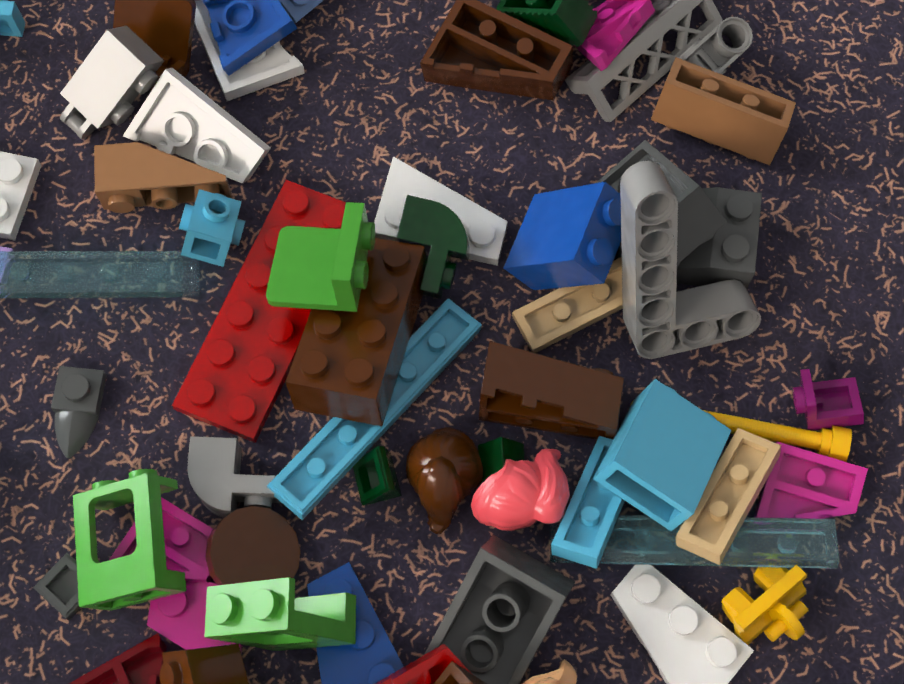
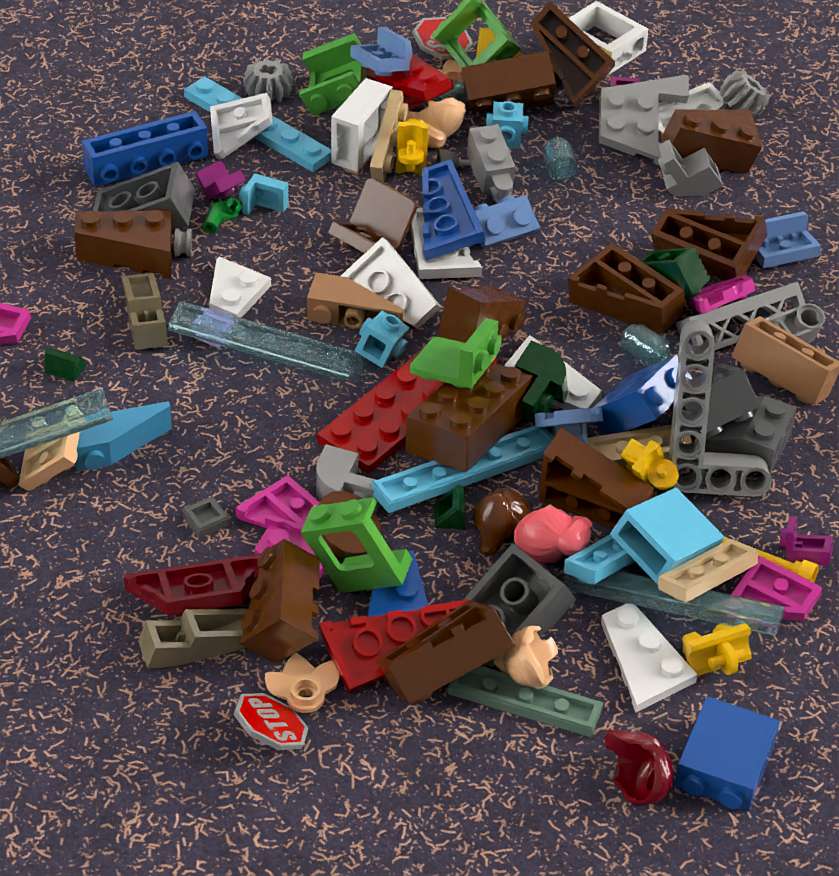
camera: 15 degrees right, 25 degrees down
(76, 406) = (248, 420): dark grey plate -> none
(109, 81) = (338, 240): brick -> none
(134, 576) = (262, 508): bright green window -> none
(327, 164) = (469, 307): none -> reddish brown wedge
(488, 299) = (571, 420): none -> medium blue tile
(542, 133) = (645, 345): none -> clear light blue brick
(610, 346) = (650, 464): none -> yellow hips

